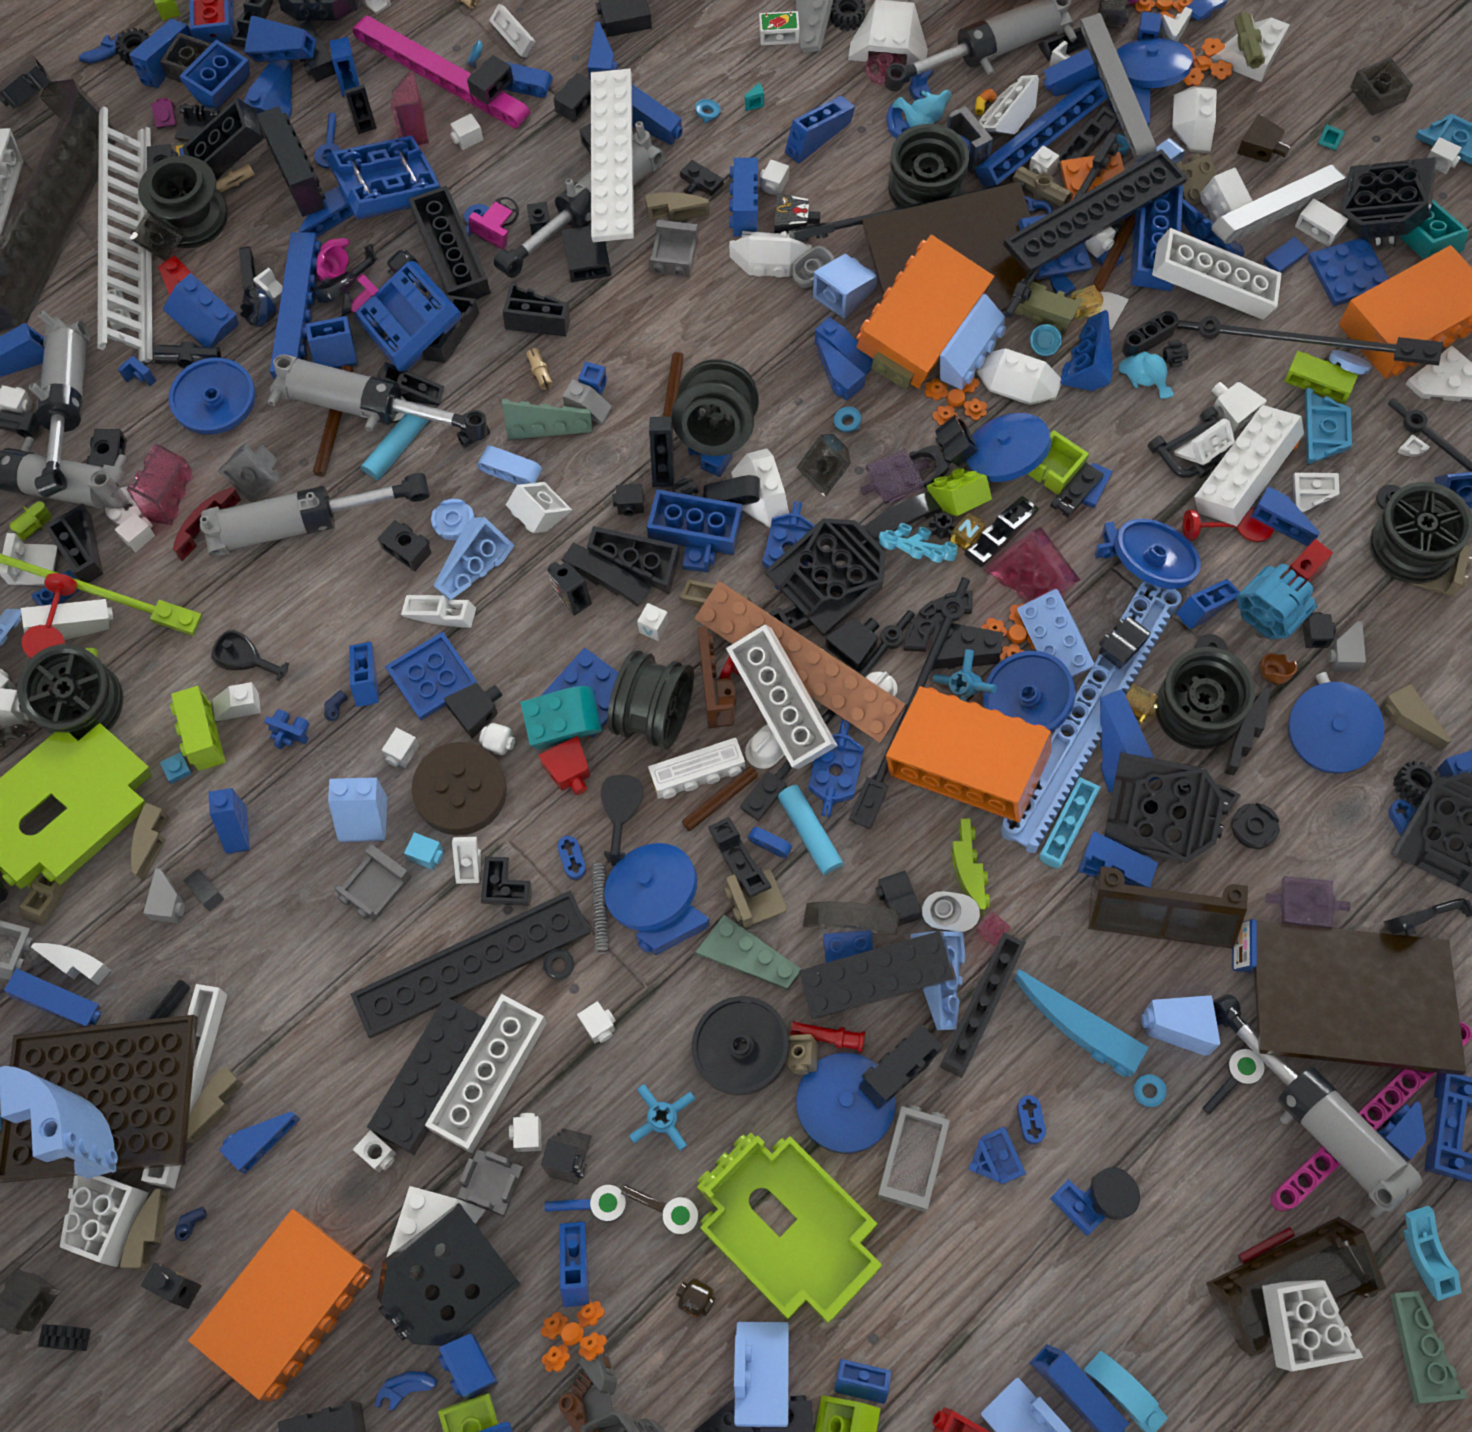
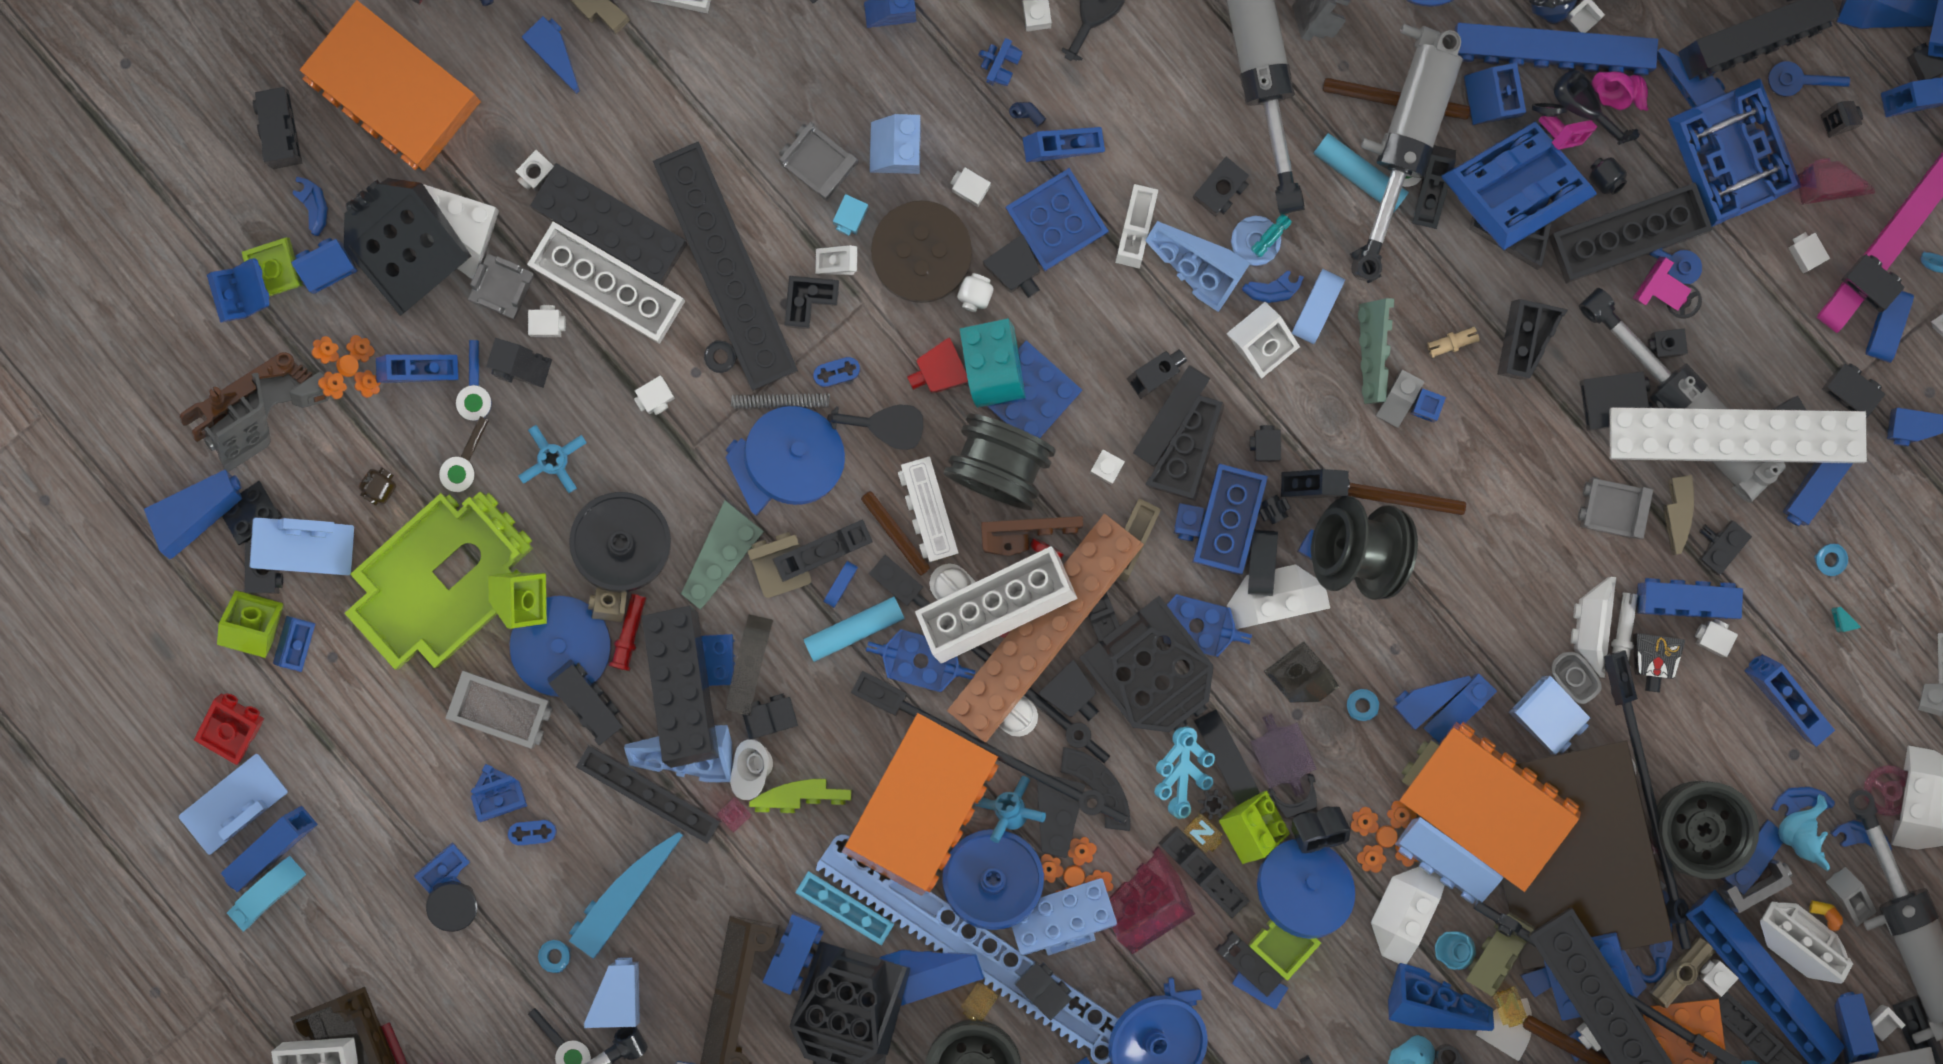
camera: 90 degrees right, 20 degrees up
(448, 503) = (1271, 235): none -> teal axle
(496, 500) = (1275, 291): none -> blue piece
(802, 1138) = (519, 598): none -> lime slope
(967, 84) = (1851, 896): none -> light grey slope

